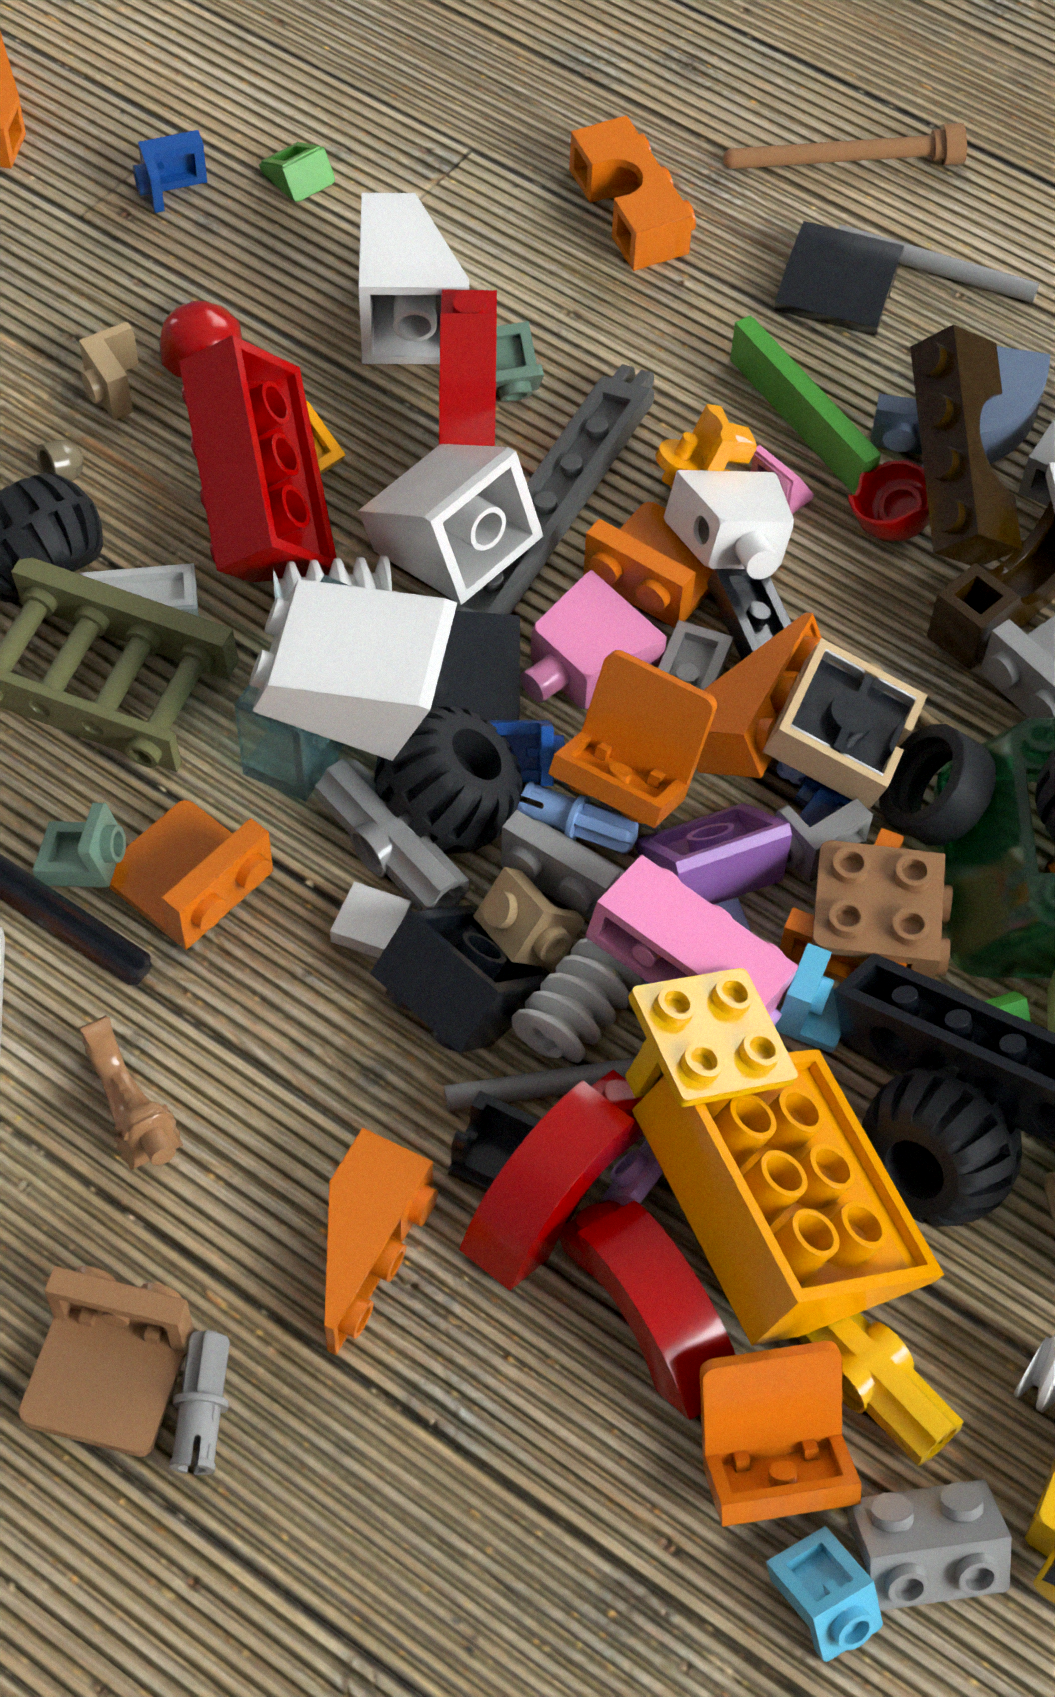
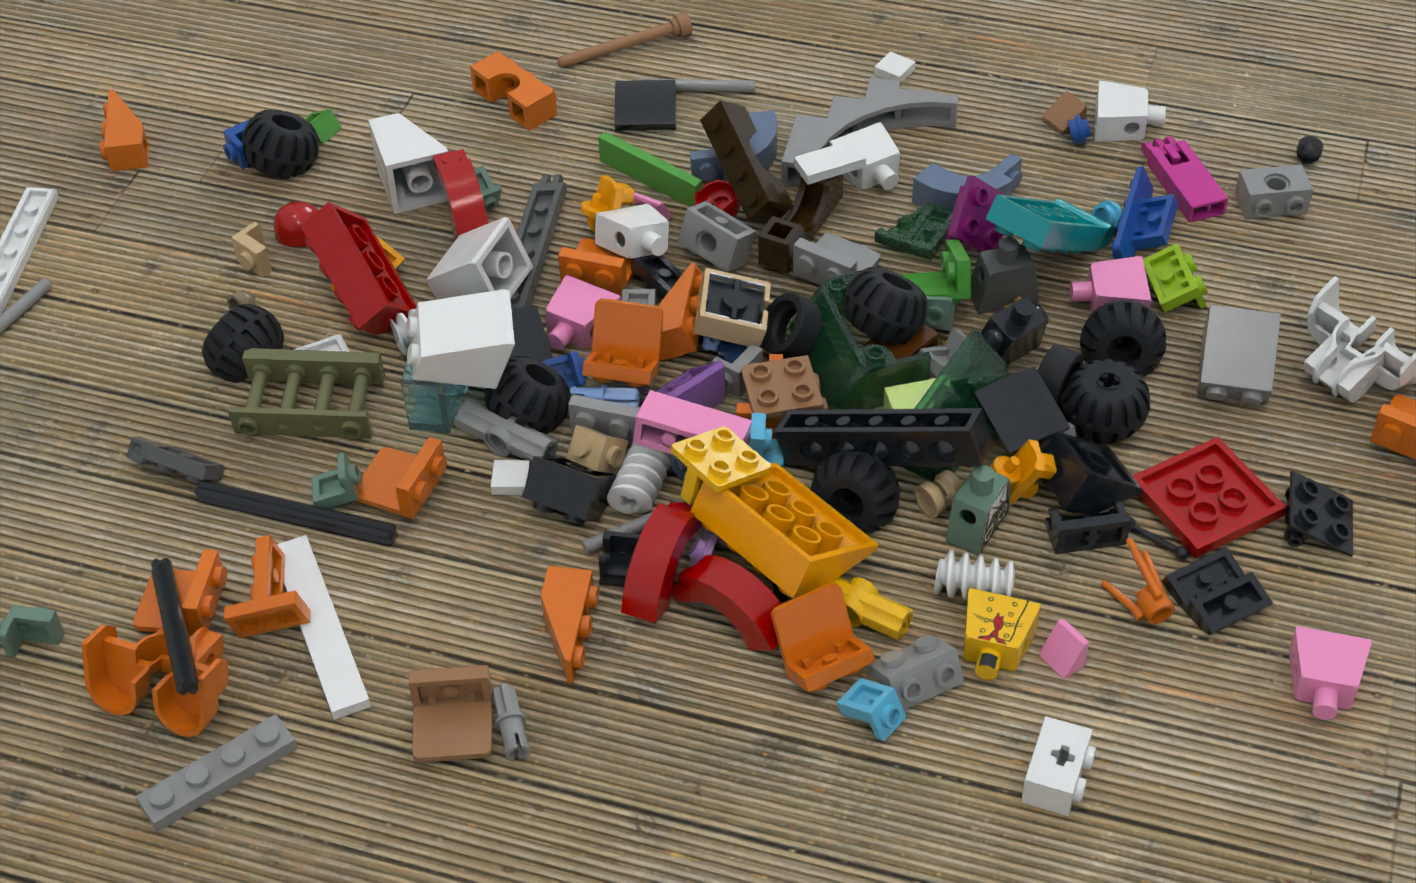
camera: 15 degrees left, 10 degrees down
(142, 1126) = (425, 605): medium nougat animal -> none
(222, 187) = (280, 143): none -> black wheel
(870, 568) = (716, 236): none -> light grey brick

